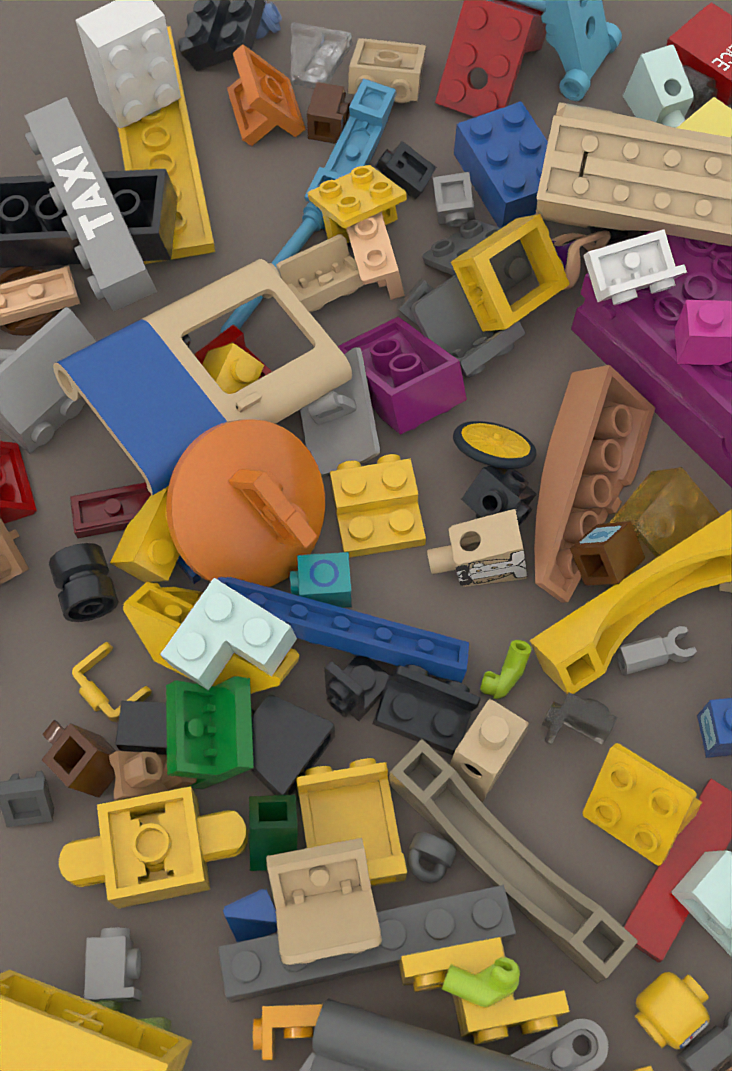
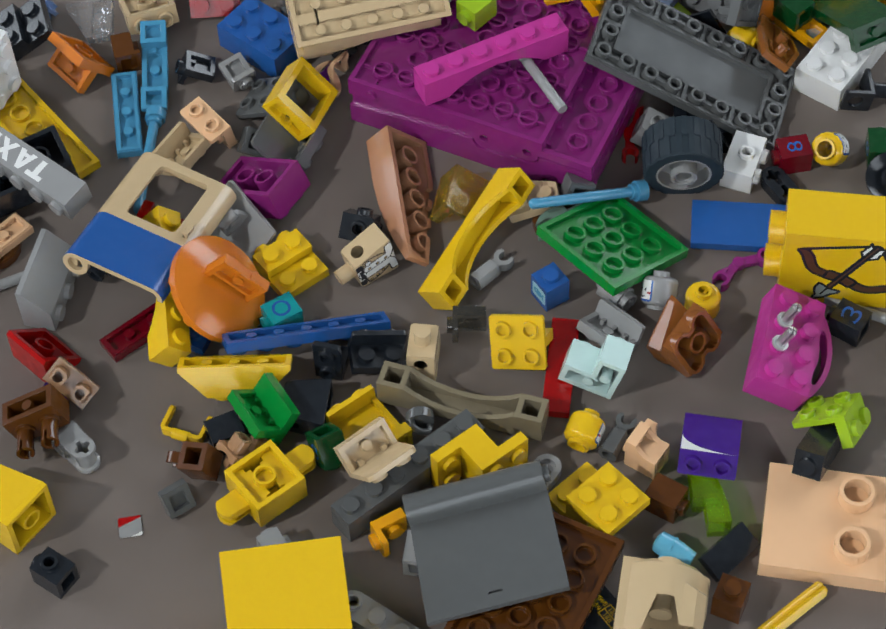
camera: 25 degrees left, 10 degrees down
(84, 580) = (139, 377): black wheel -> none
(226, 625) = (251, 345): light aqua brick -> none
(252, 916) = (337, 488): blue slope -> none
(286, 196) = (127, 114): none -> dark azure tile
(356, 199) = (177, 97): yellow bracket -> none
(485, 987) = (480, 444): lime arm -> none
(494, 445) = (341, 200): wheel -> none
(510, 673) = (415, 312): lime arm -> none
(607, 553) = (438, 228): reddish brown brick -> none
(632, 266) = (373, 62): white bracket -> none

